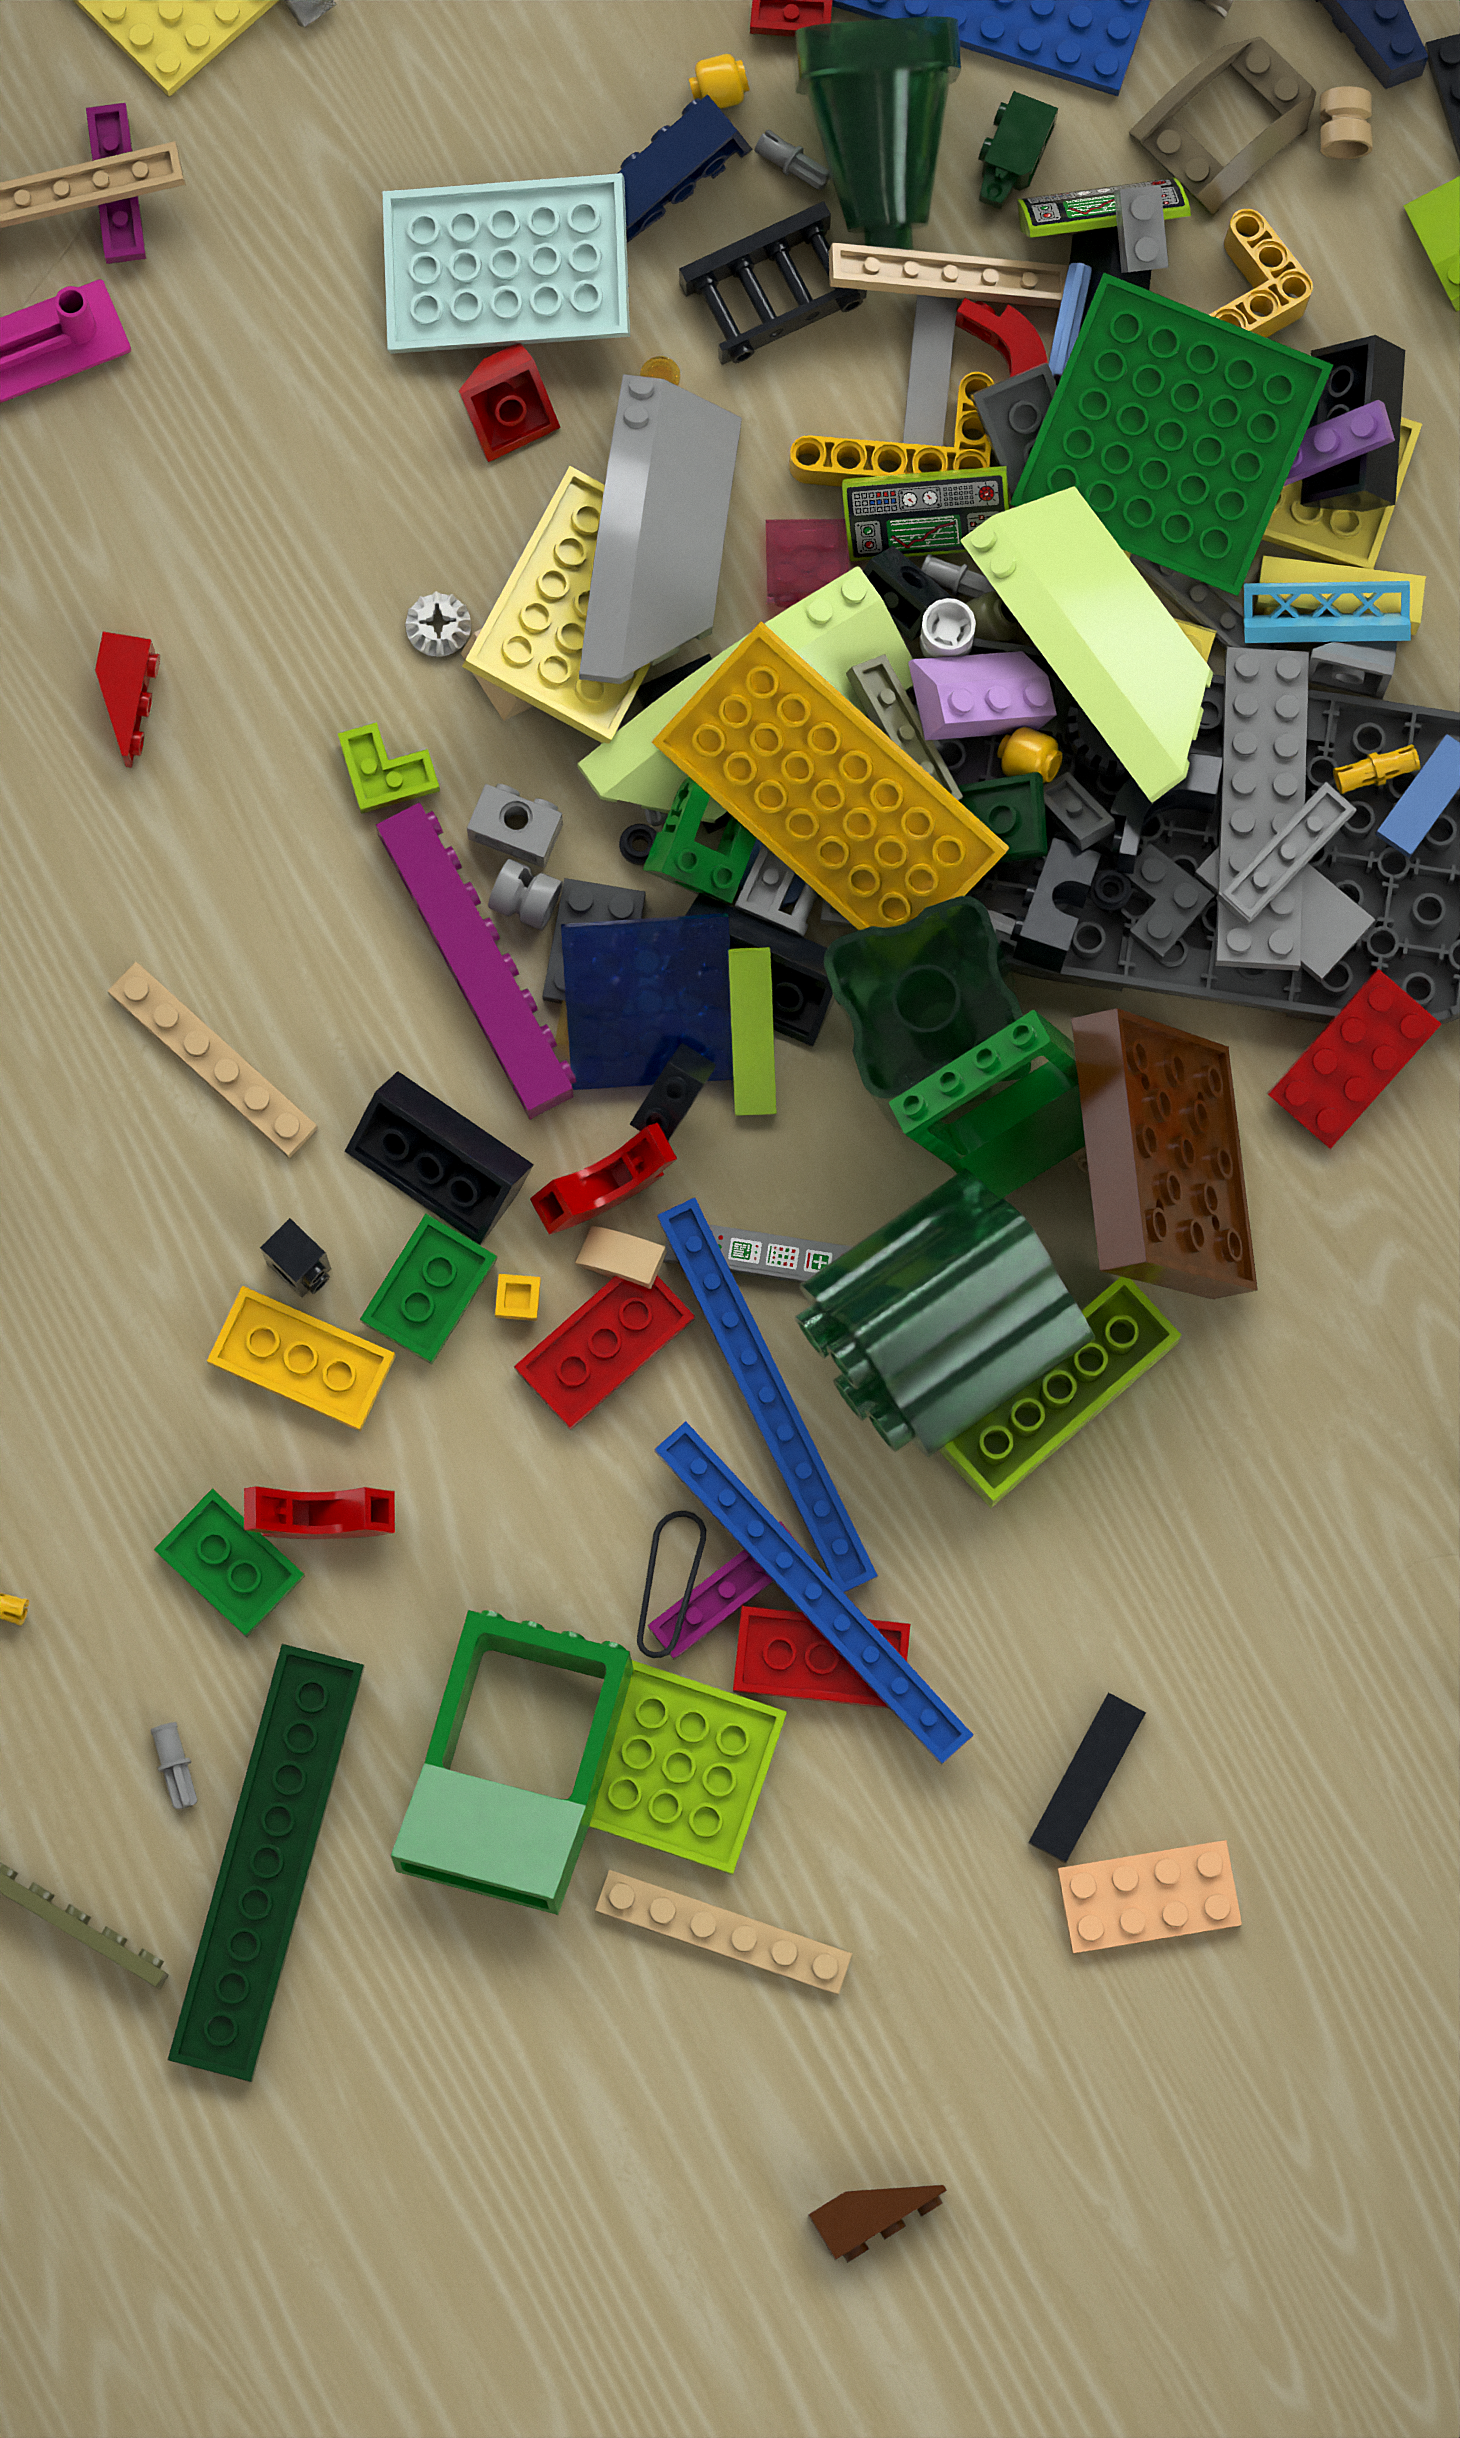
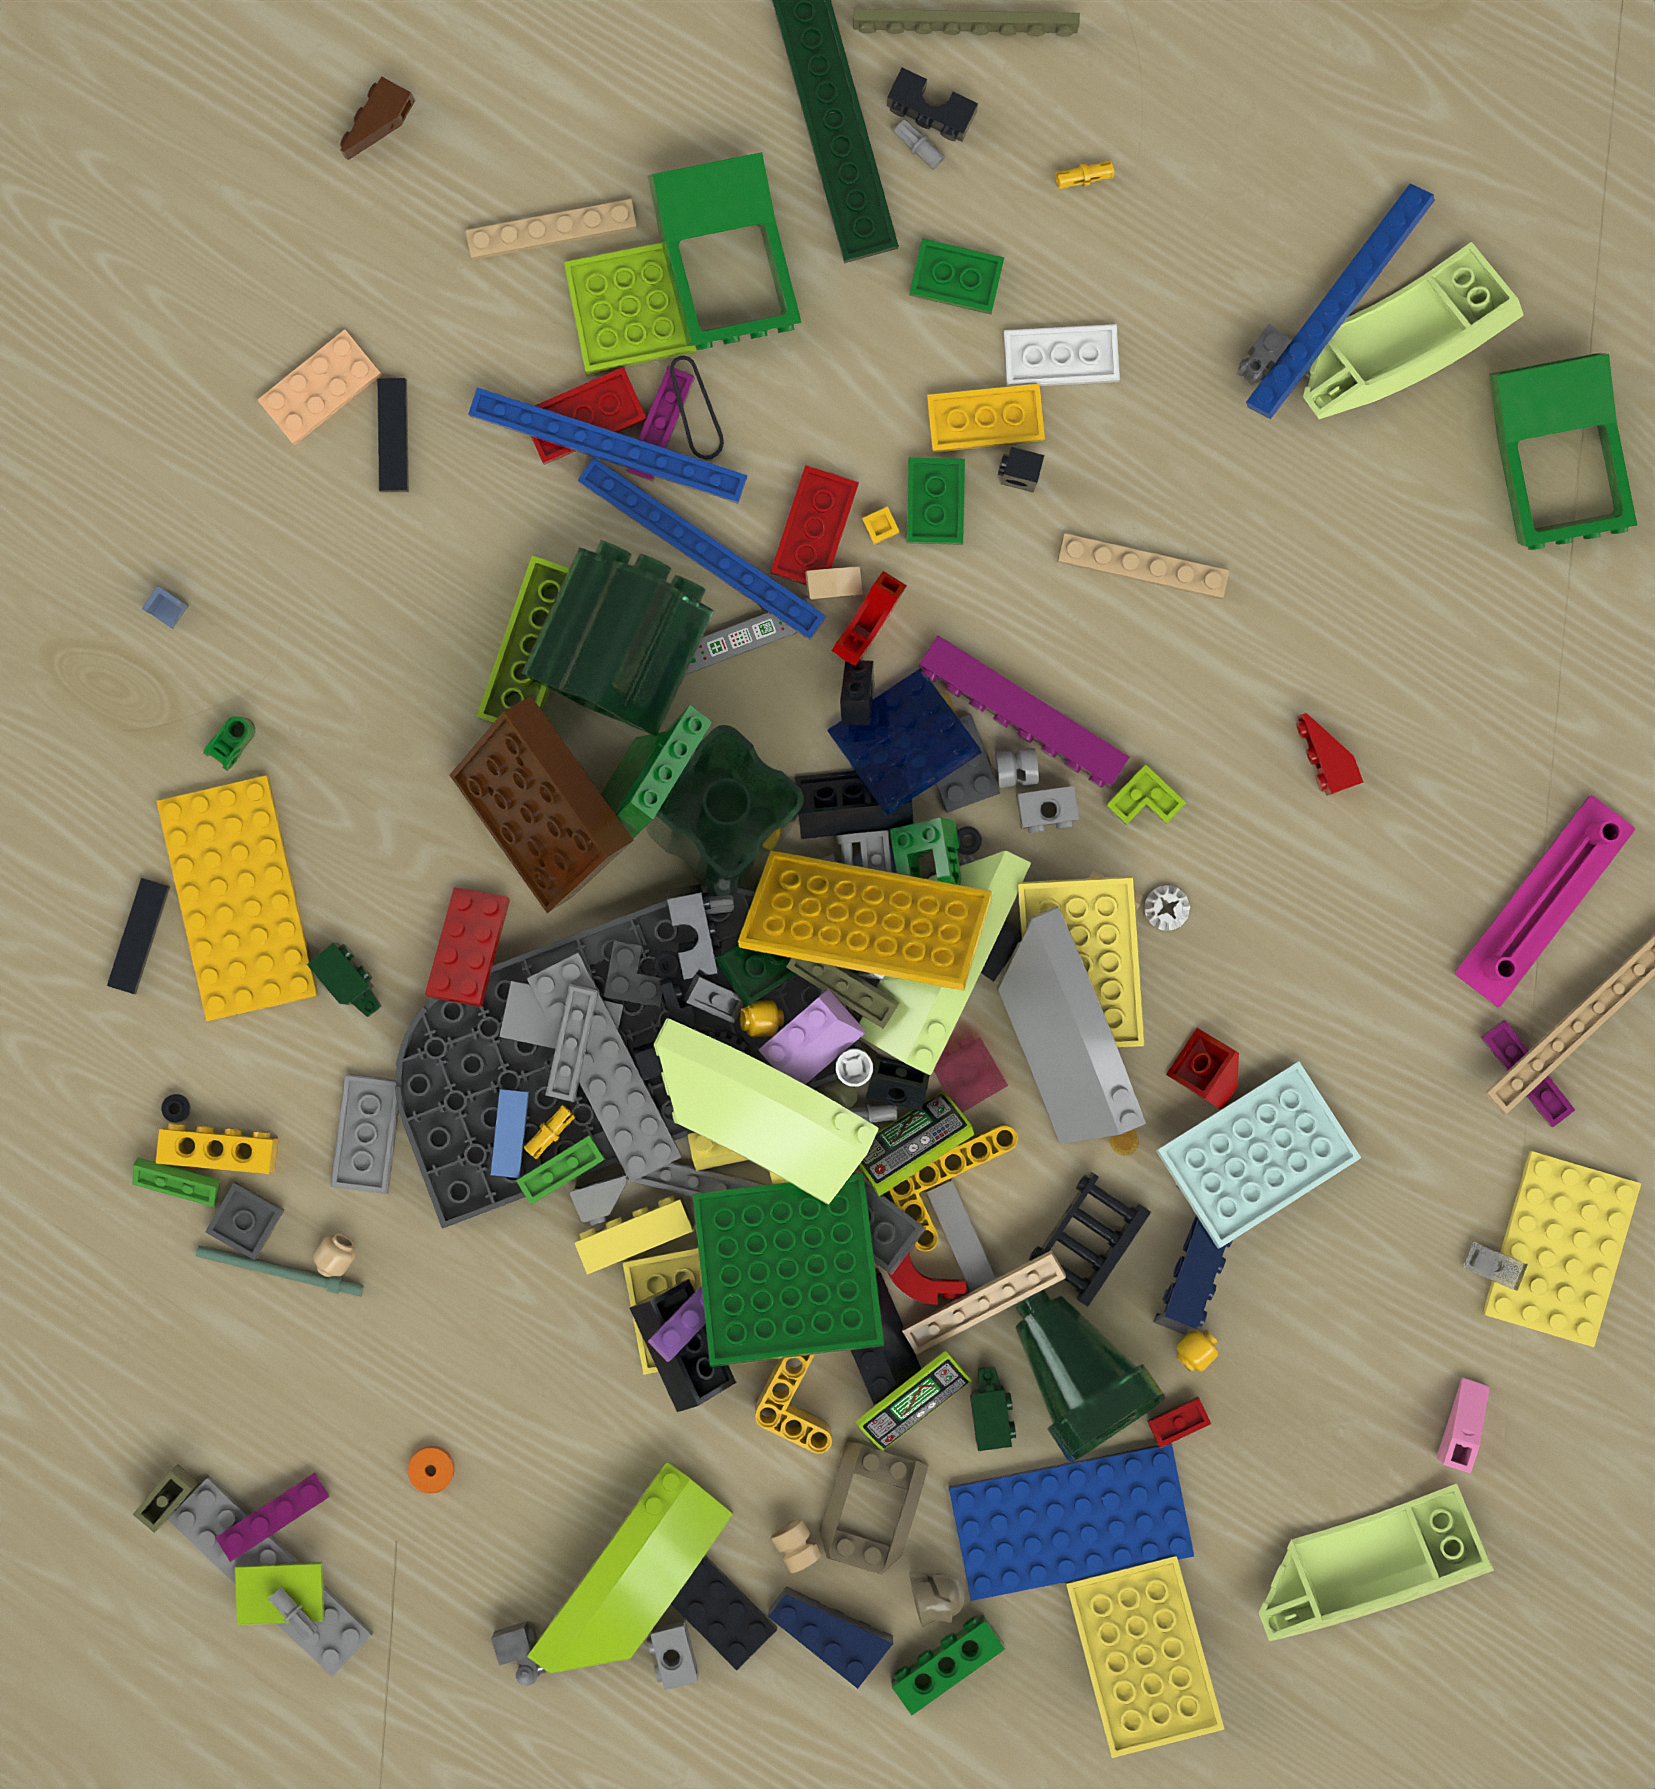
camera: 150 degrees right, 10 degrees up
(110, 1772) = (950, 119): none -> black arch
(155, 1385) = (1062, 355): none -> white tile
(319, 1514) = (921, 332): red arch -> none
(438, 1157) = (975, 582): black slope -> none
(752, 1031) = (833, 759): lime tile -> none
(792, 160) = (1123, 1326): light grey axle -> none
(1069, 316) = (894, 1317): light blue axle -> none
(1141, 228) = (879, 1391): light grey brick -> none
(1327, 627) = (626, 1207): medium azure fence -> none
(1388, 714) = (560, 1169): none -> bright green plate

